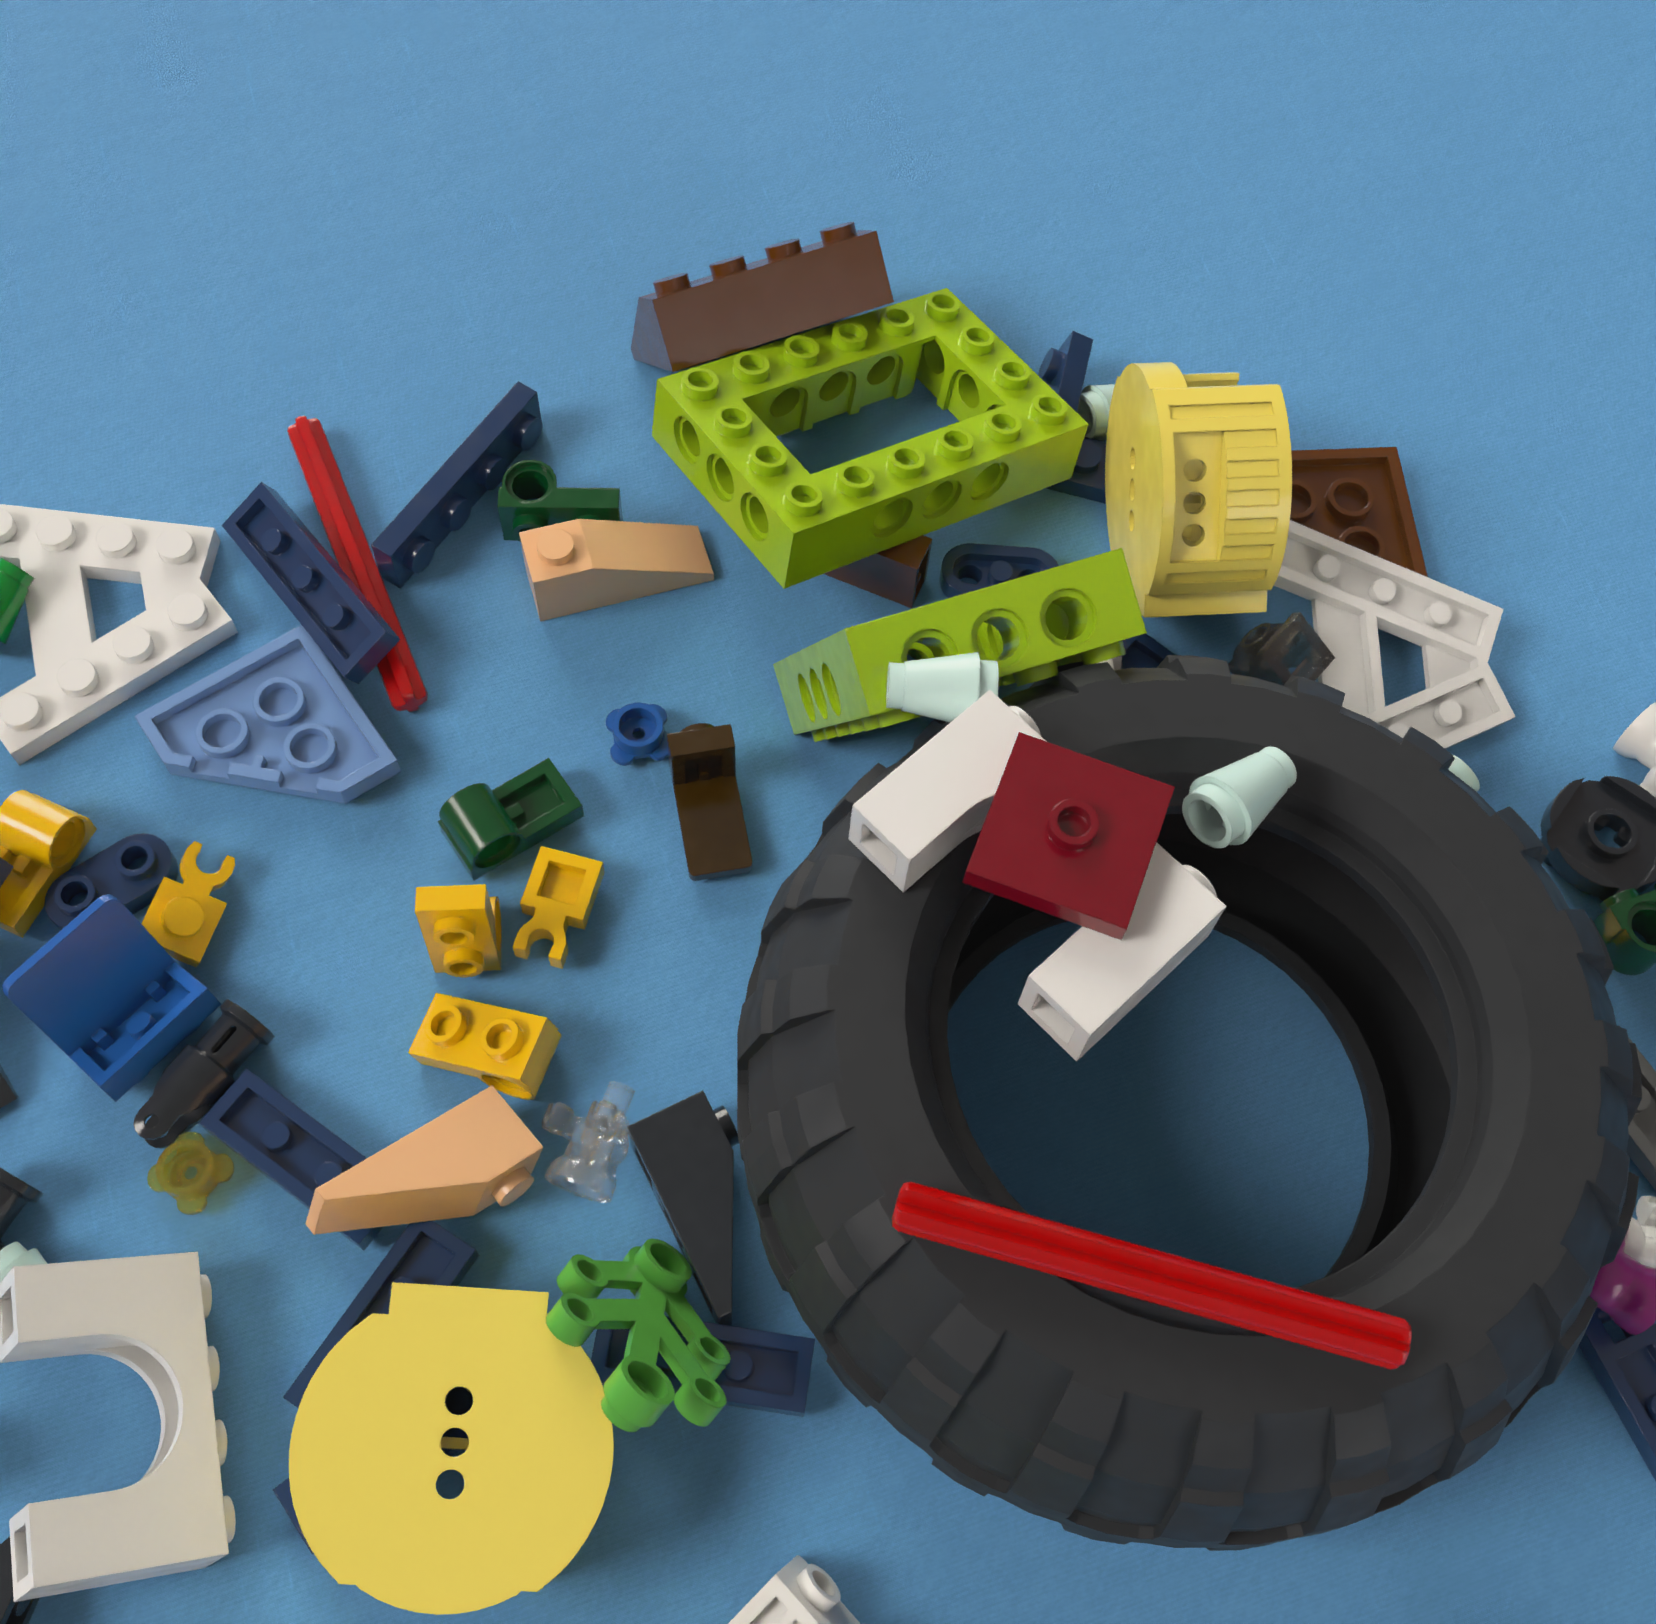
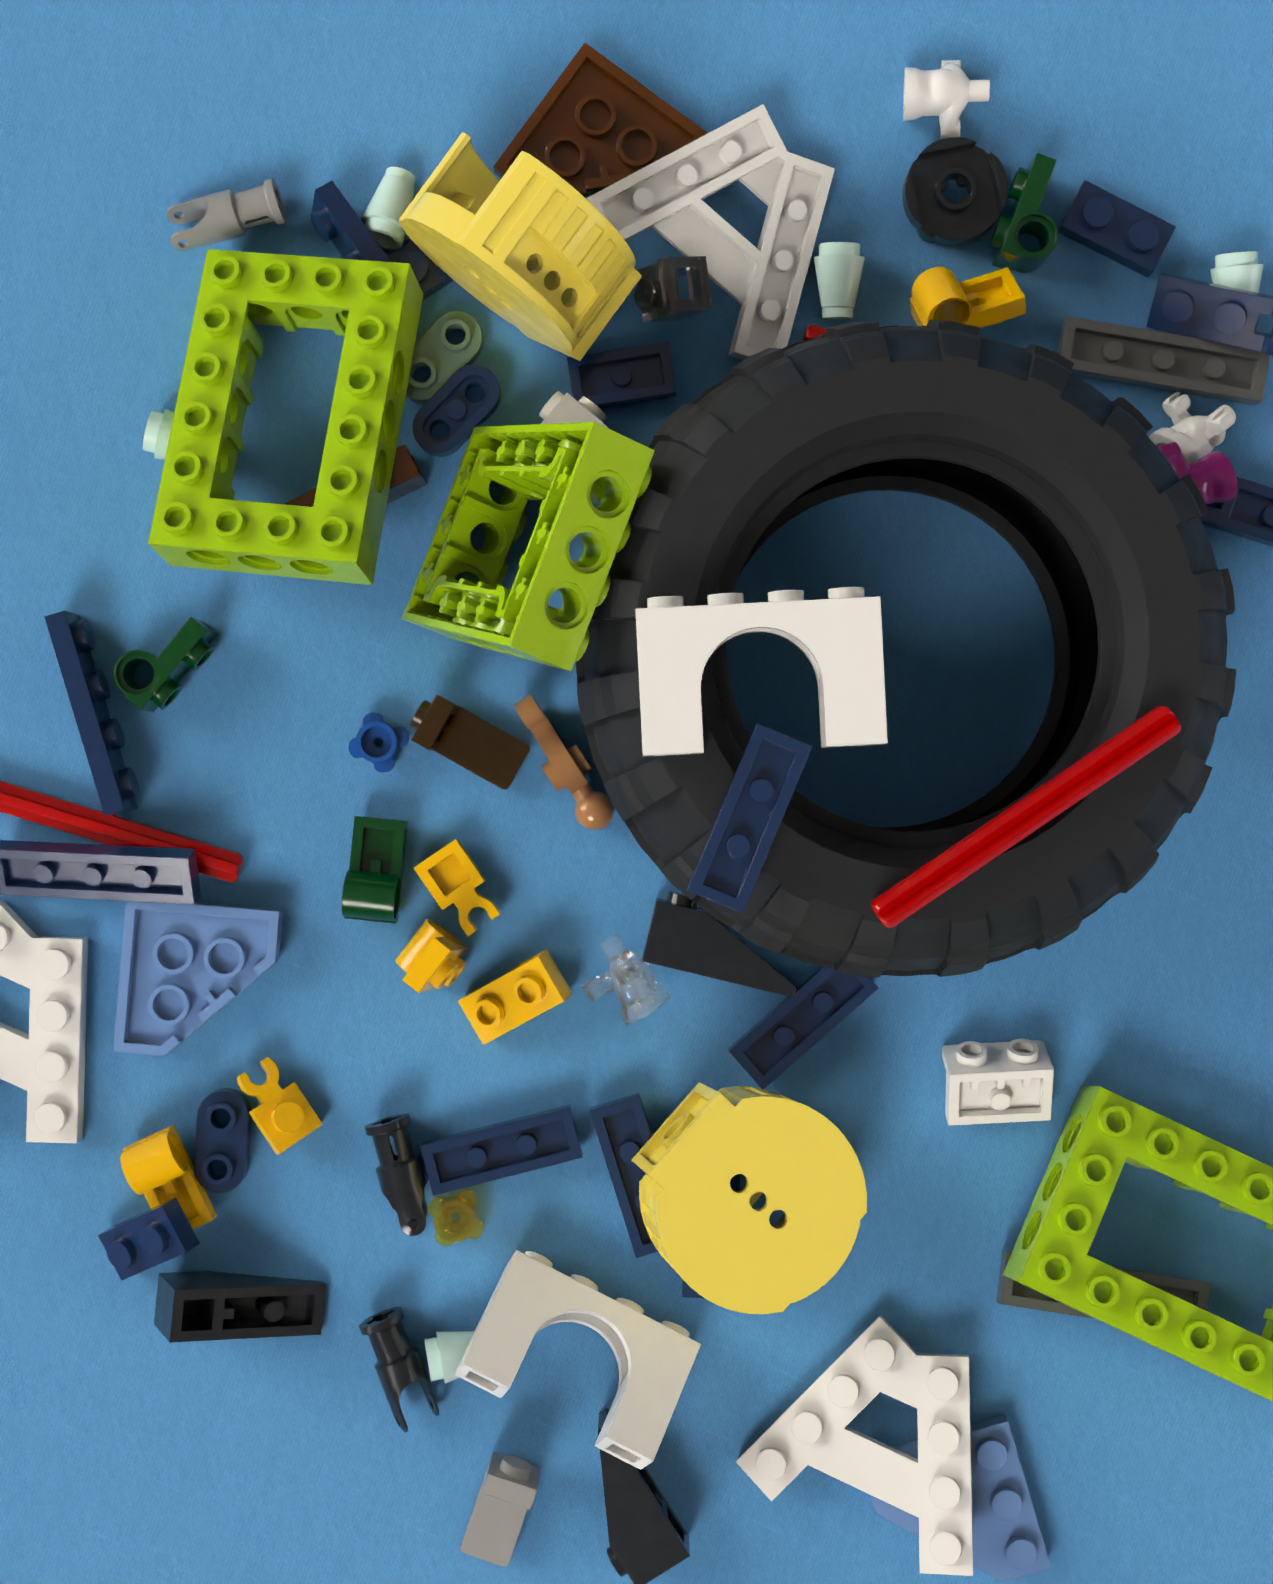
camera: 45 degrees left, 25 degrees up
(110, 996) = (315, 1194): blue bracket -> none
(434, 1173) = (580, 1083): light nougat slope -> none
(609, 562) = (238, 659): light nougat slope -> none
(638, 1388) = (739, 1009): bright green plant -> none
(753, 904) = (566, 767): none -> medium nougat piece
(761, 299) = (133, 406): reddish brown slope -> none
(880, 978) = (749, 818): none -> dark blue plate
(940, 685) = (597, 618): light aqua cone -> none
(991, 299) = (226, 215): none -> light grey piece
(1034, 528) = (441, 356): none -> sand green plate
(1069, 835) = (768, 650): dark red plate -> none
(1235, 799) = (813, 510): light aqua cone -> none

